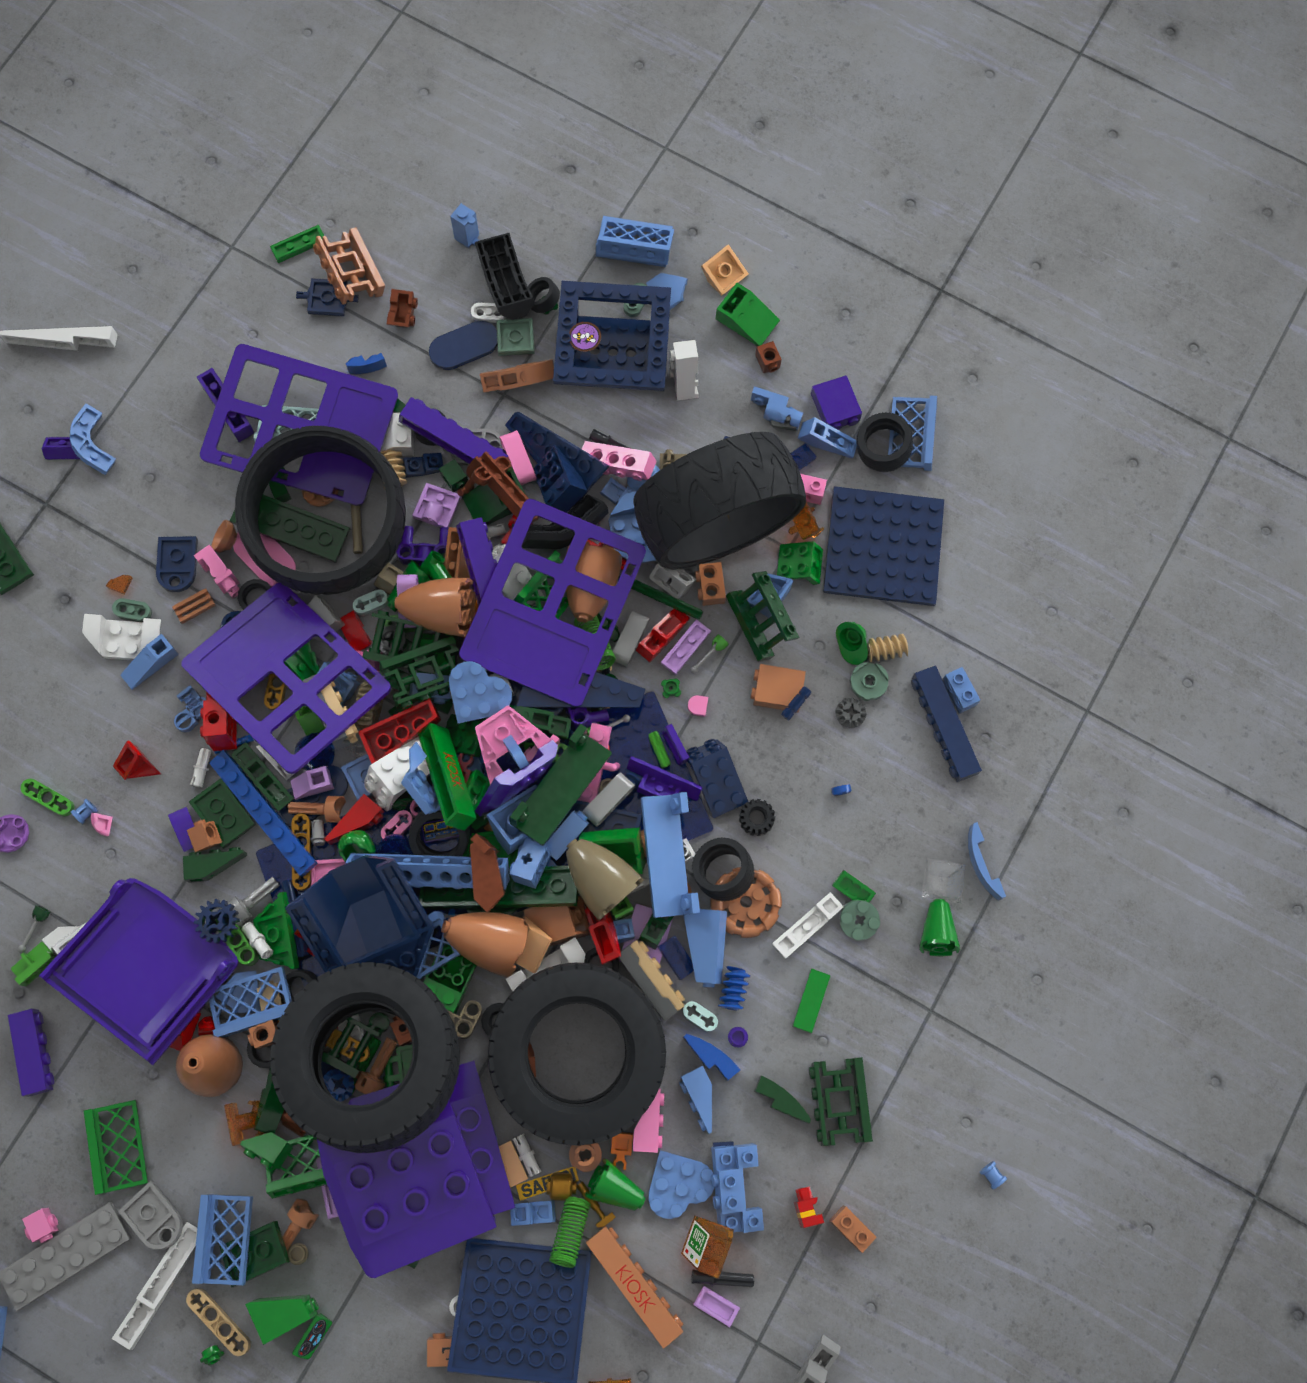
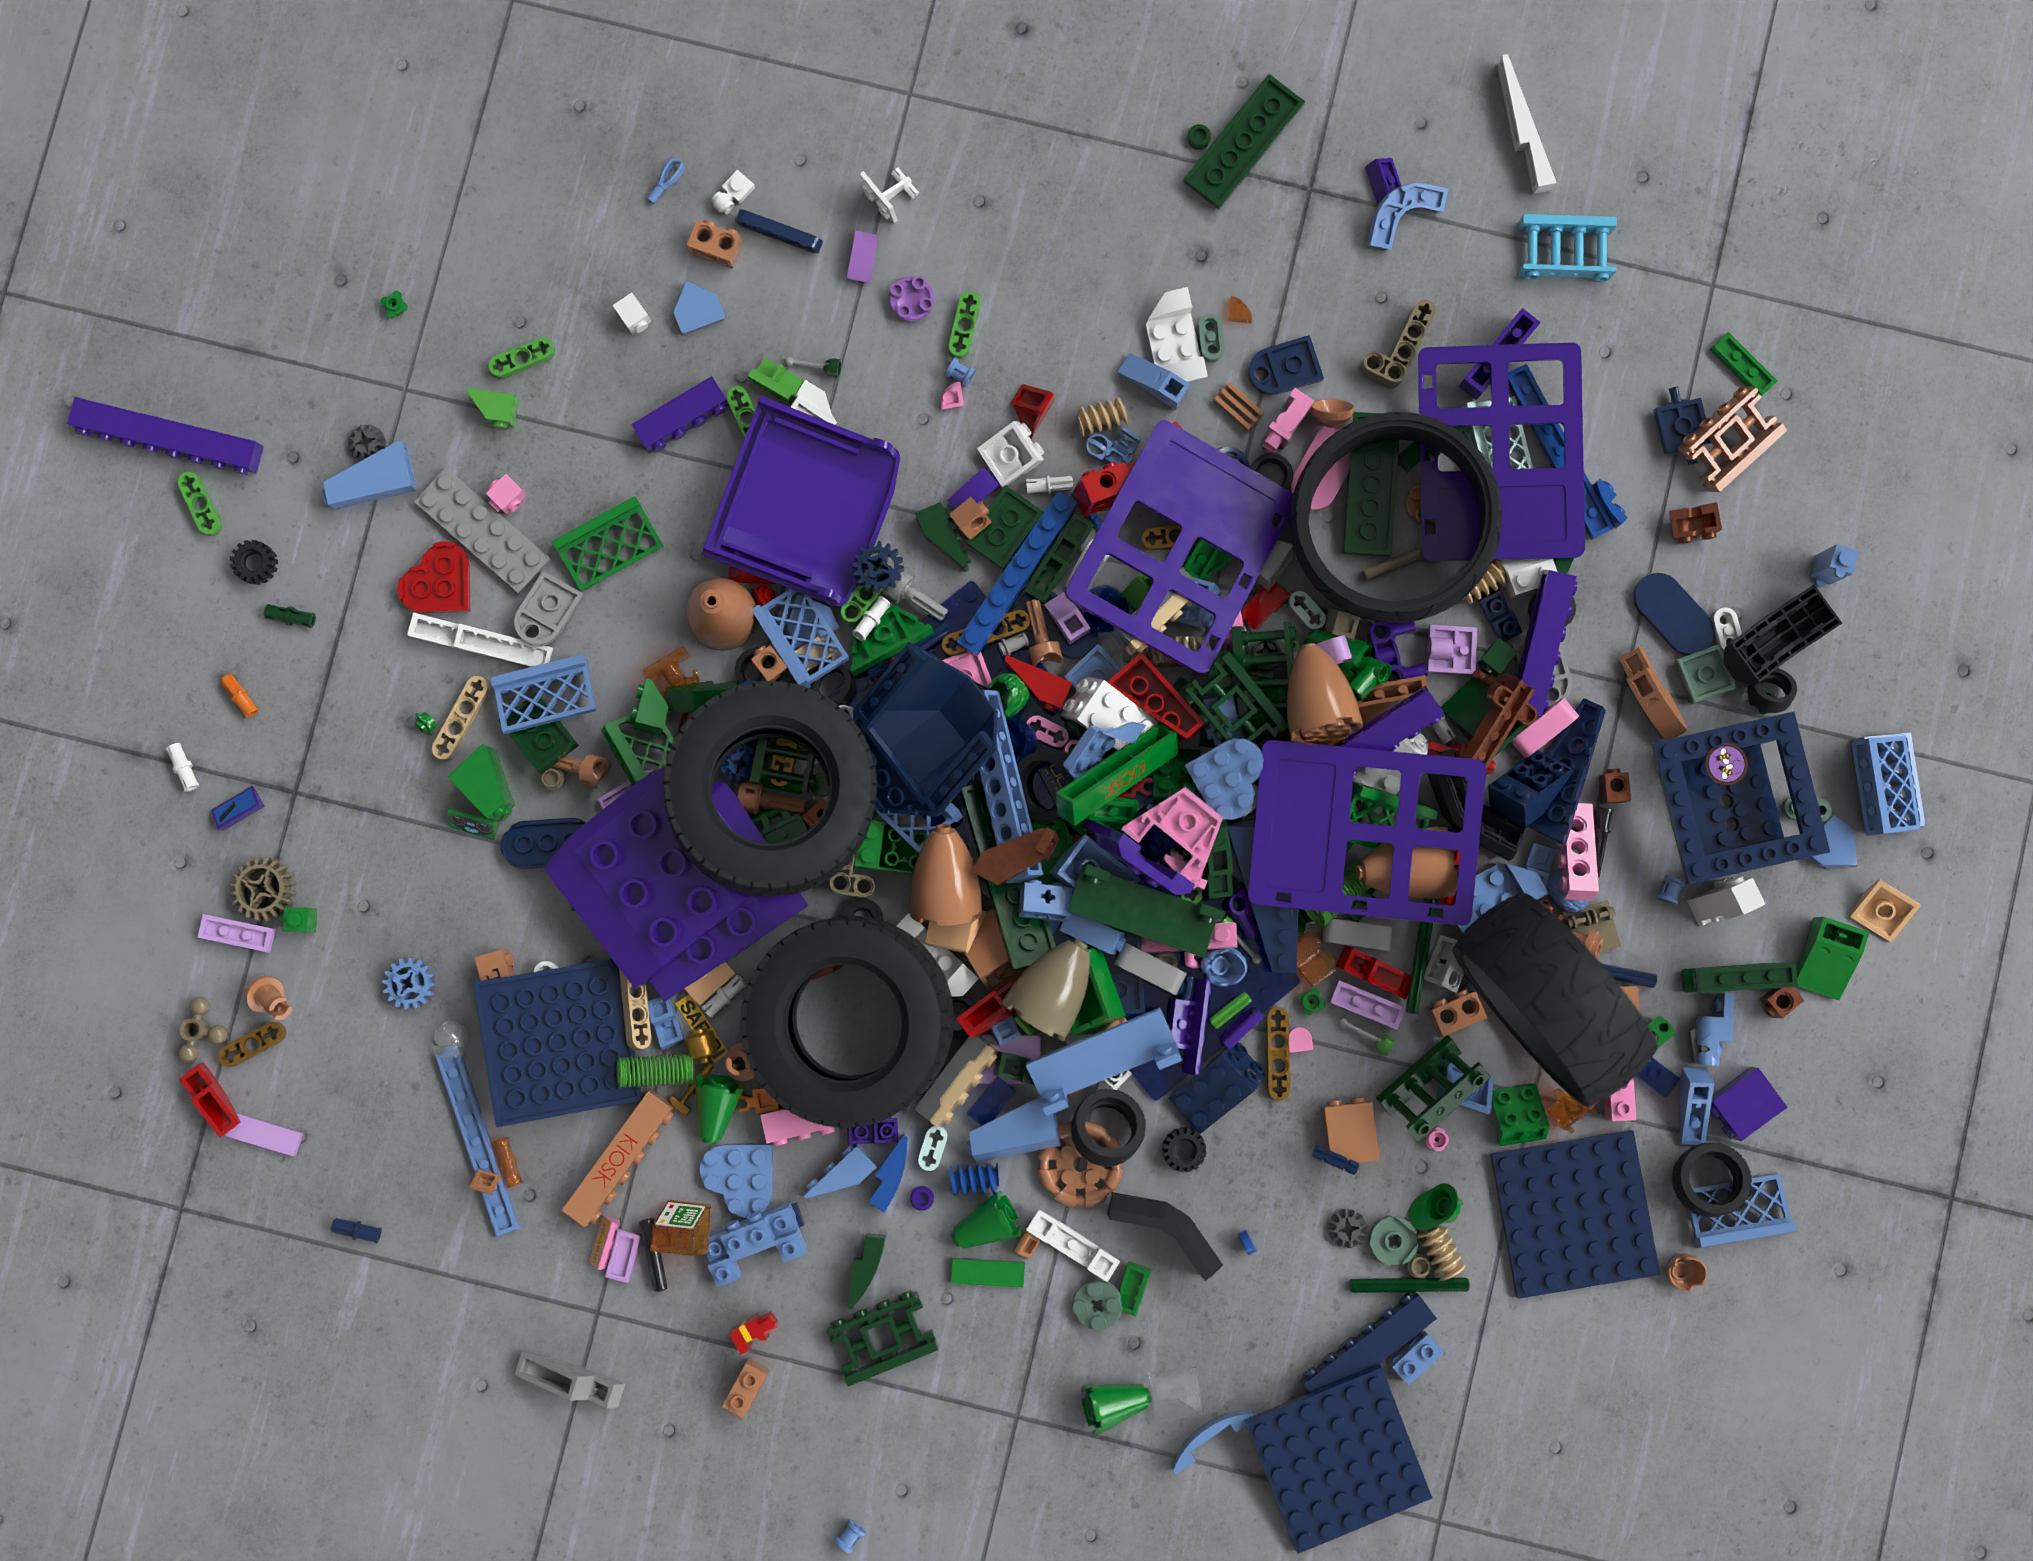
camera: 75 degrees right, 10 degrees up
(41, 1004) = (734, 406): none -> bright green beam
(94, 1308) = (439, 581): none -> red plate
(150, 323) = (1578, 226): none -> medium azure fence
(160, 710) = (1101, 416): none -> tan piece
(164, 789) = (1011, 453): none -> white plate
(191, 469) = (1404, 343): none -> dark tan beam
(308, 387) = (1552, 442): none -> blue plate
(346, 1283) = (536, 841): none -> dark blue tile
(510, 1230) = (629, 1005): none -> tan beam
(515, 752) = (1166, 846): medium blue beam -> none
(581, 429) = (1607, 794): none -> copper brick
(624, 743) = (1224, 966): none -> medium blue hair
(642, 675) = (1312, 961): none -> clear orange brick
(666, 407) = (1671, 890): none -> medium blue bush
(674, 1060) = (881, 1132): none -> dark purple slope
(700, 1319) = (604, 1242): none -> slope
(702, 727) = (1275, 1053): none -> pearl gold beam
(743, 378) = (1739, 977): none -> dark green fence
(772, 989) = (987, 1223): none -> green cone
(797, 962) = (1026, 1244): none -> nougat slope
(802, 622) = (1443, 1139): none -> bright pink plate
(811, 839) = (1170, 1220): none -> black piece
(893, 668) = (1419, 1266): none -> dark tan plate
(905, 680) = (1409, 1285): none -> dark green axle
(947, 480) = (1686, 1272): none -> nougat hair
(1022, 770) = (1338, 1459): none -> dark blue plate

